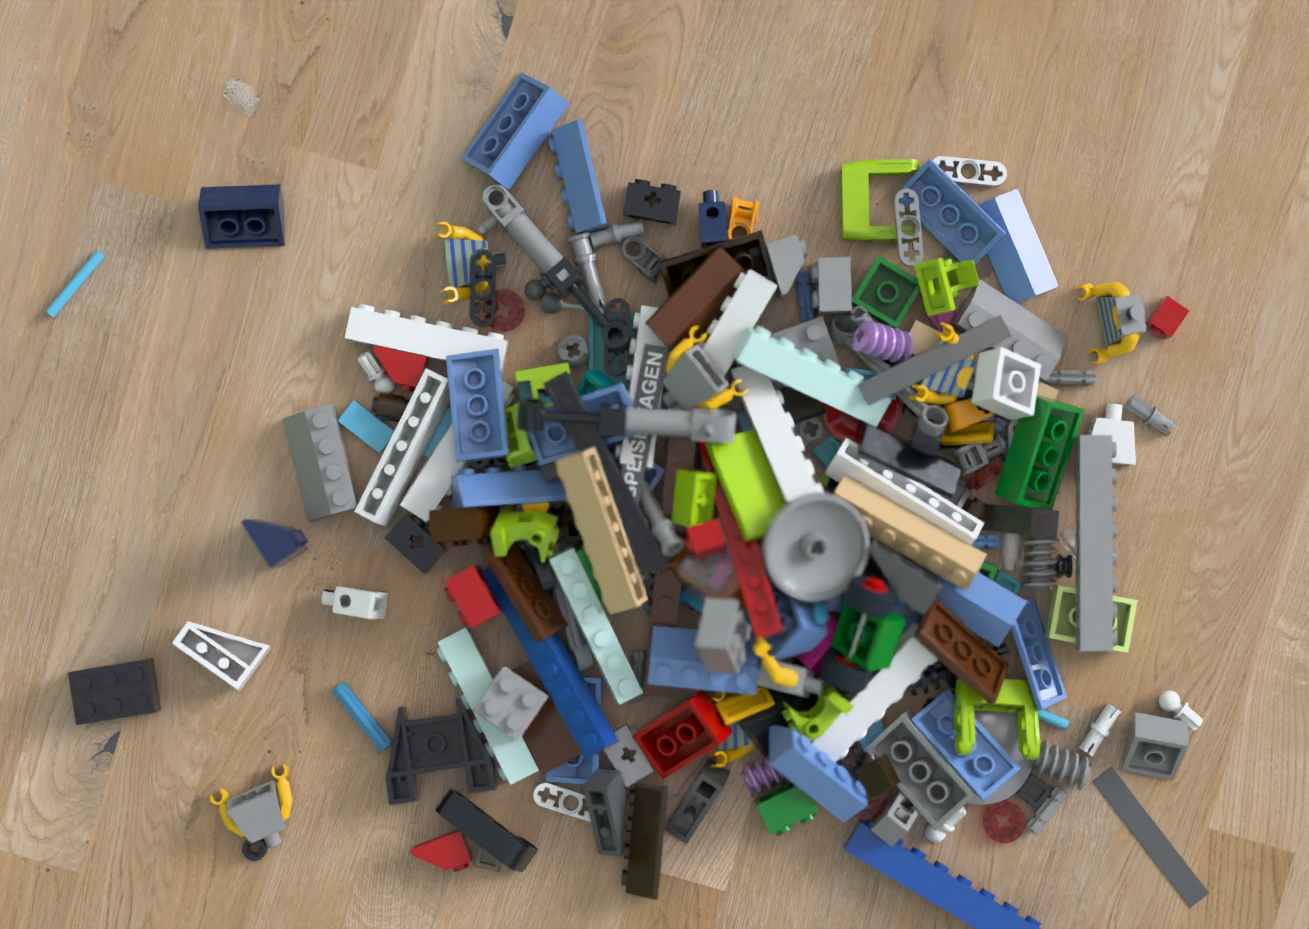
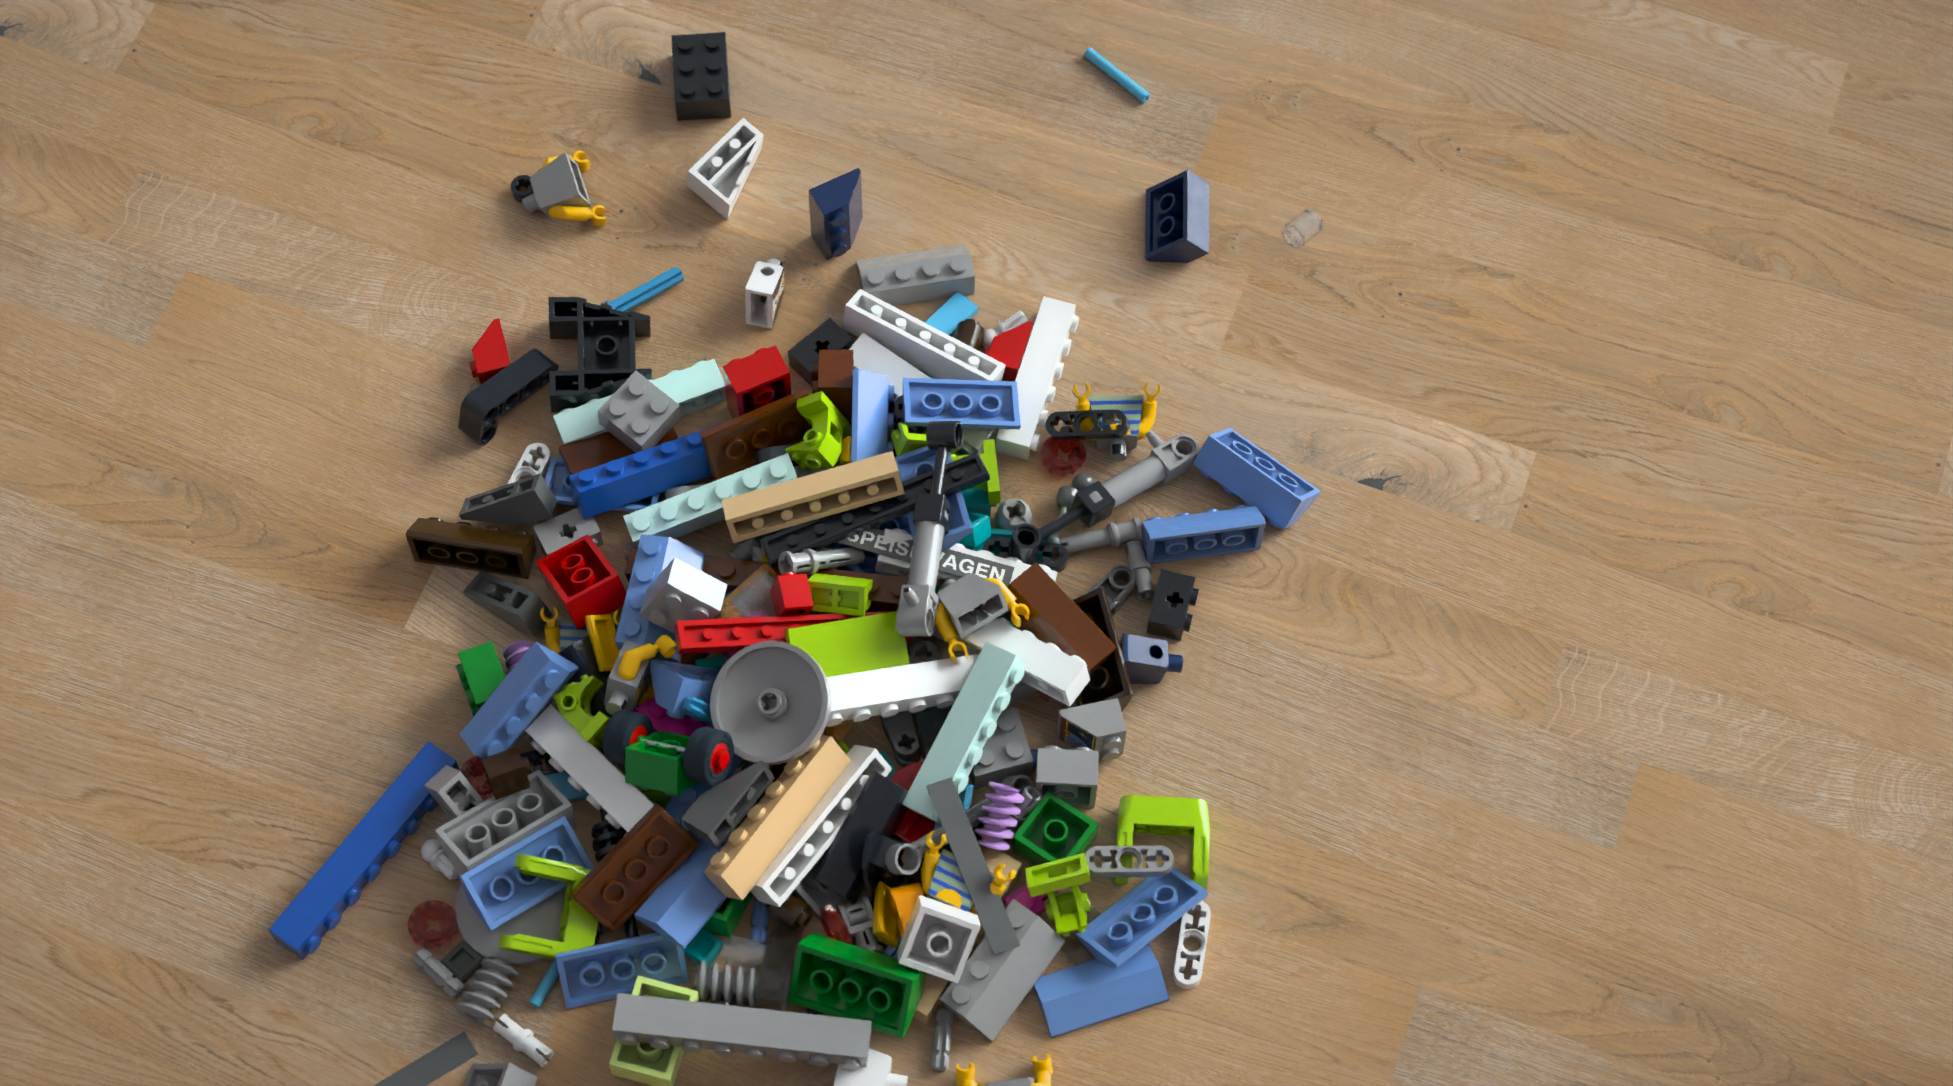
camera: 90 degrees right, 25 degrees down
(742, 216) = (1148, 693): light orange piece -> none

